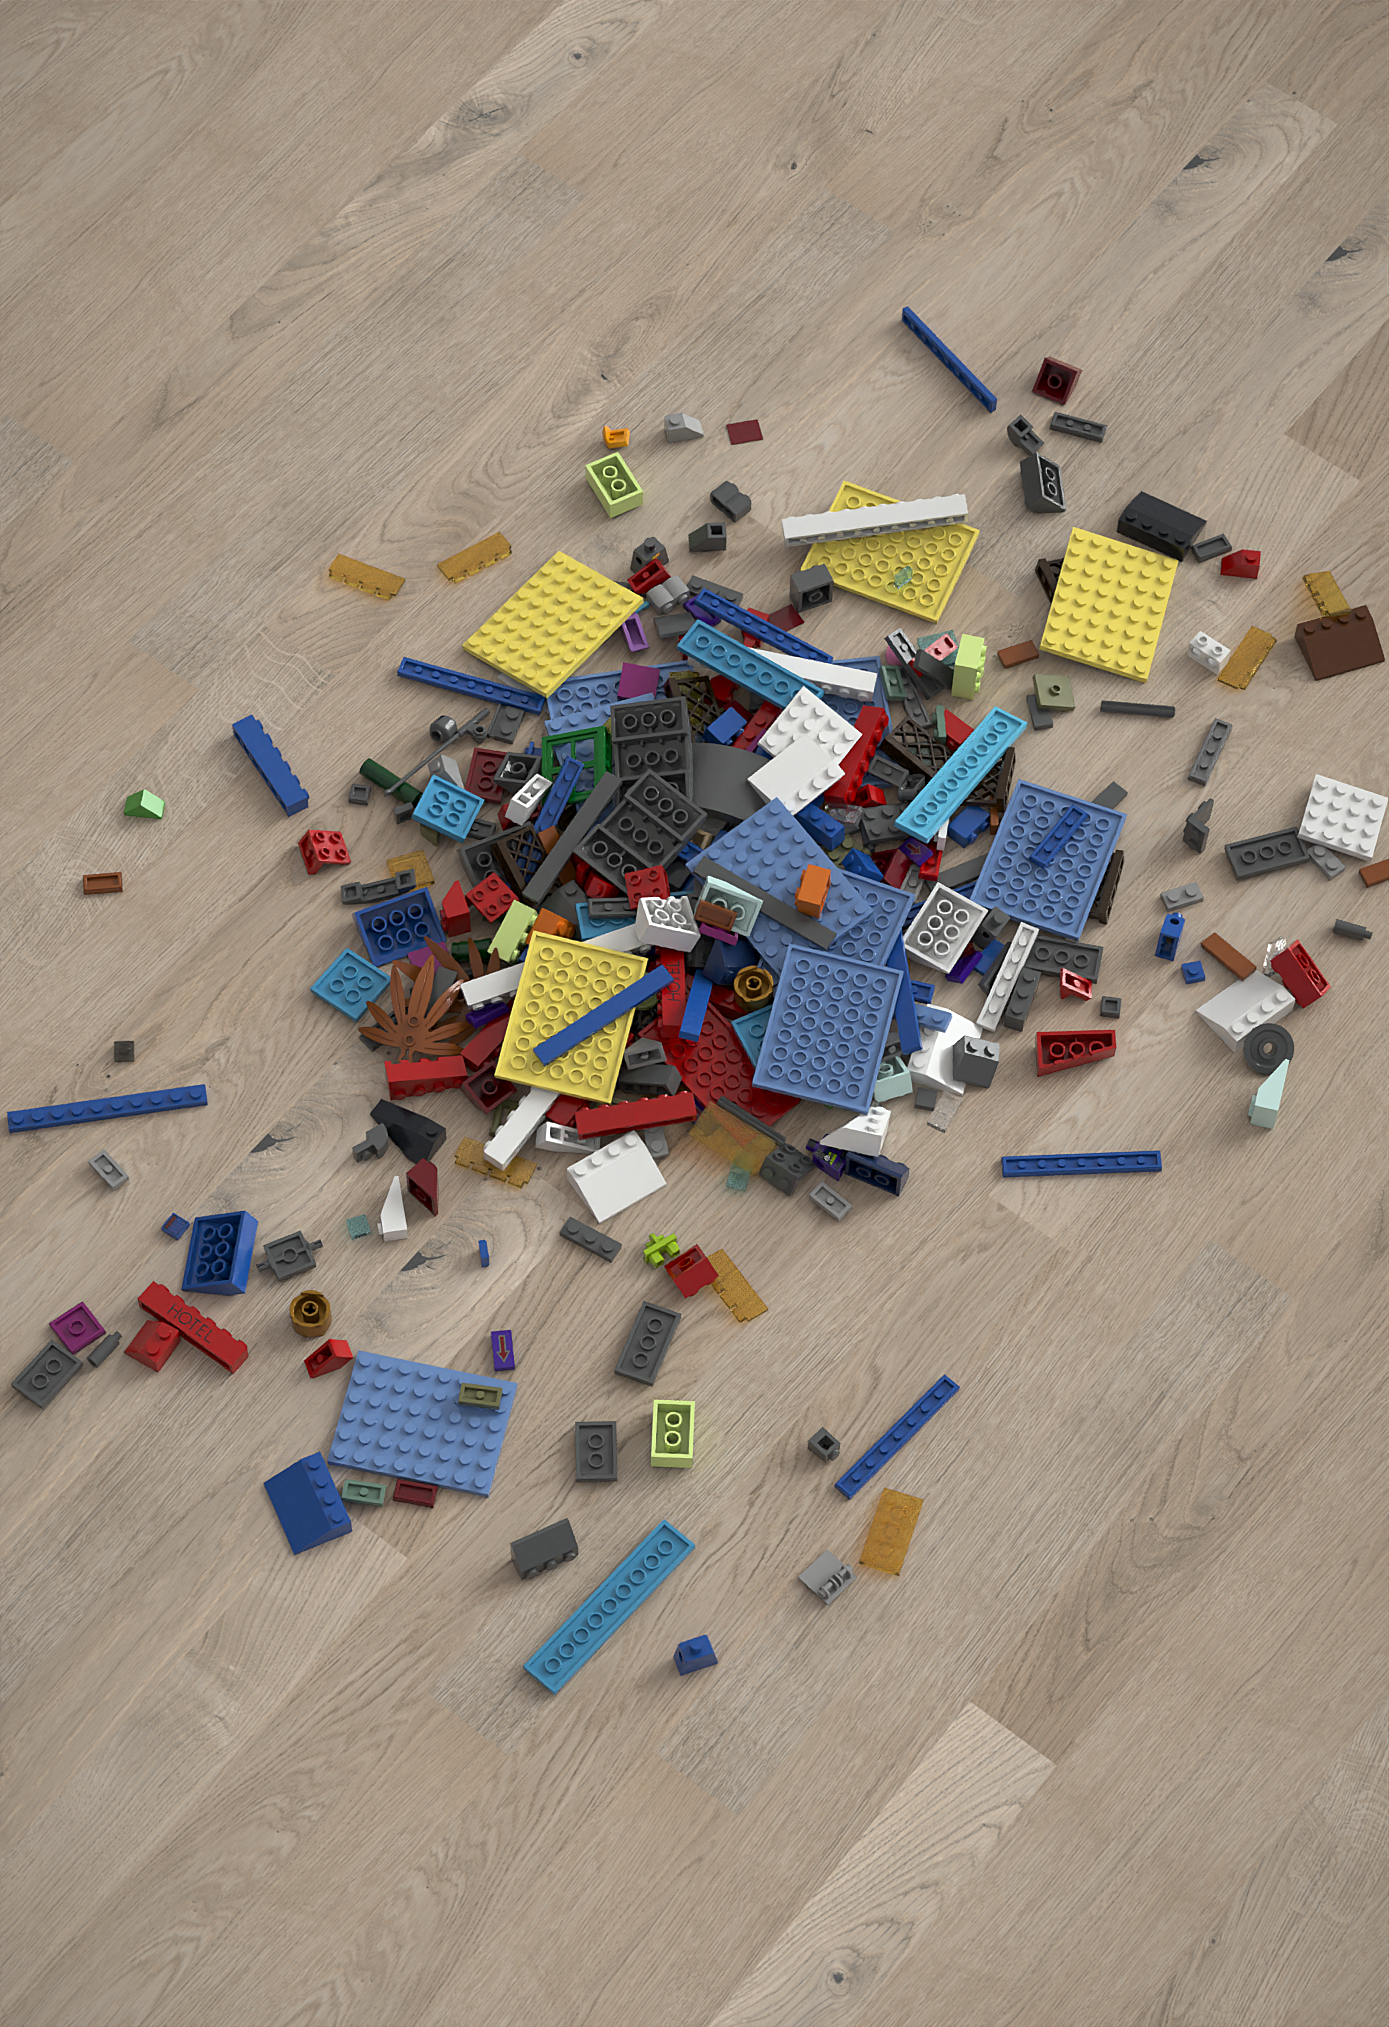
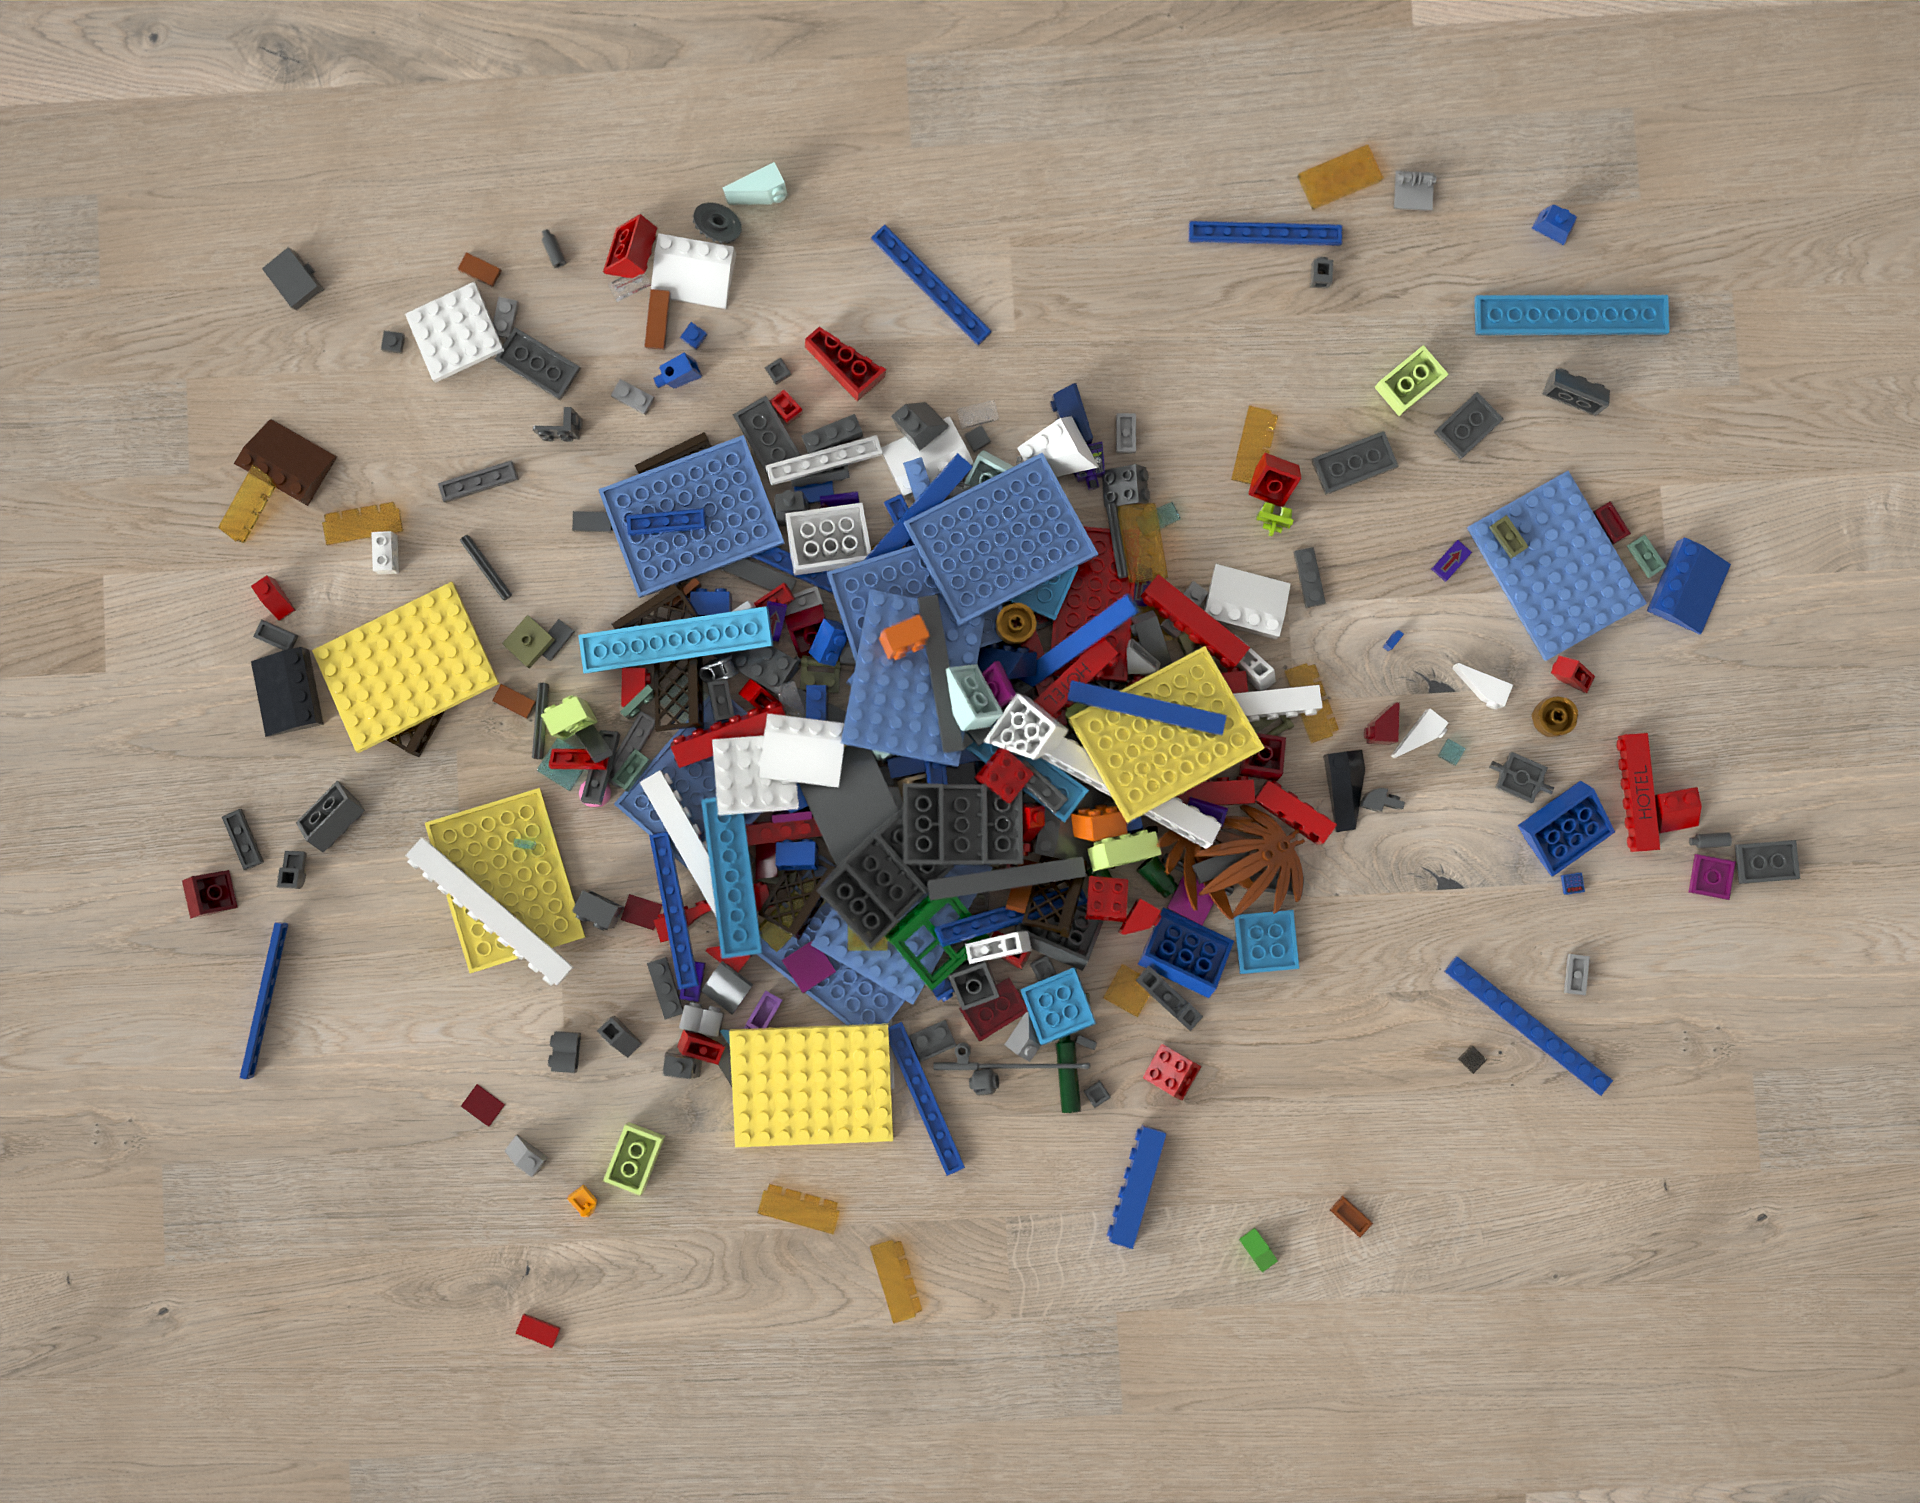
camera: 130 degrees left, 25 degrees up
(384, 1287) = (1486, 688): none -> white slope
(557, 352) = (538, 1330): none -> red tile
(715, 915) = (989, 696): dark orange tile -> none
(997, 668) = (540, 726): none -> dark grey axle
(1373, 776) = (392, 342): none -> dark grey plate

